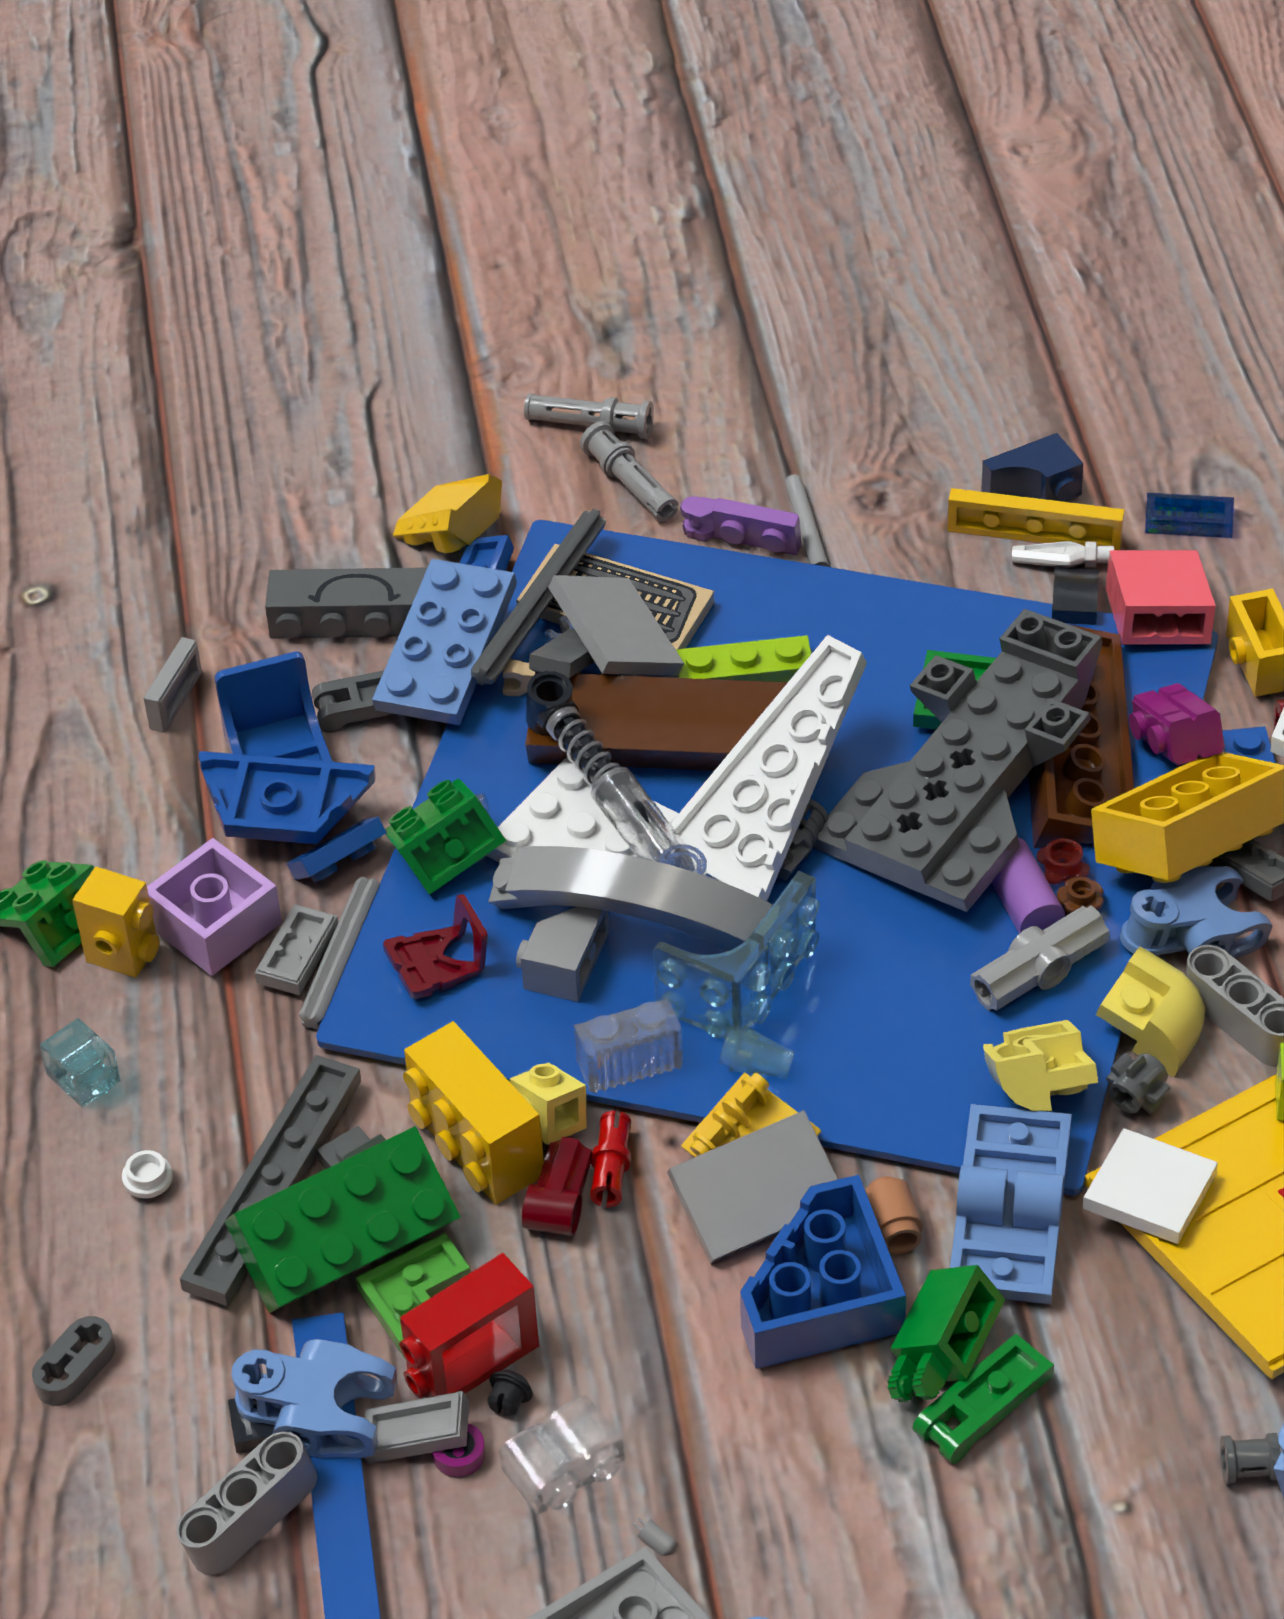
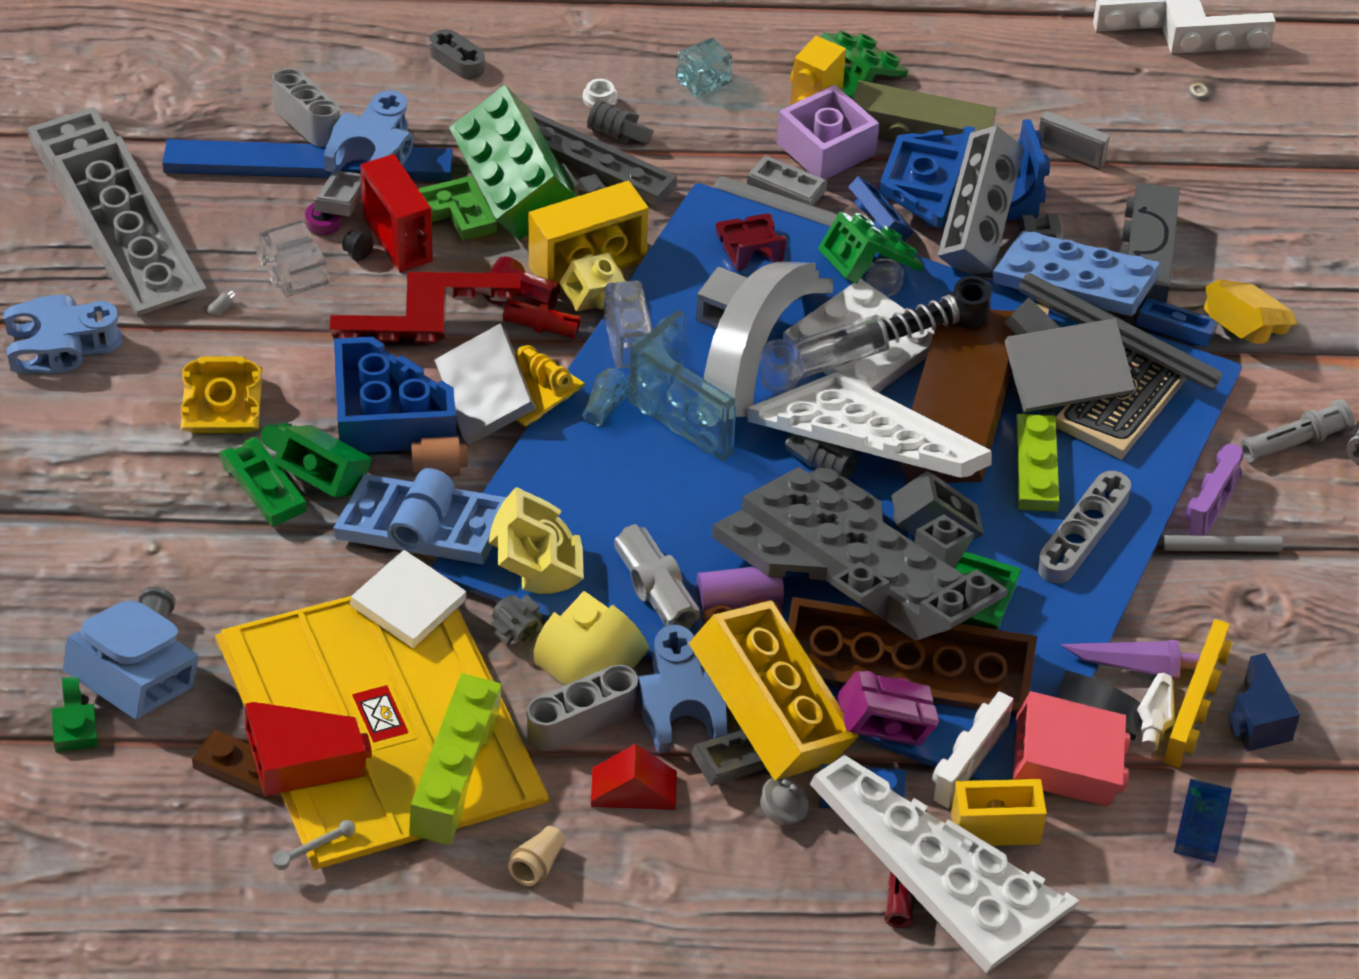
camera: 95 degrees right, 0 degrees up
(161, 812) = (910, 111): none -> olive brick
(208, 1142) = (617, 123): none -> dark grey hinge
(343, 729) = (981, 201): none -> light grey brick
(639, 1269) = (427, 306): none -> red bracket
(836, 611) = (1088, 528): none -> light grey beam
(844, 1479) = (221, 395): none -> yellow slope
(867, 733) = (930, 498): none -> dark grey slope
(998, 566) = (1137, 656): none -> medium lavender bar
(1191, 665) = (972, 747): none -> white plate

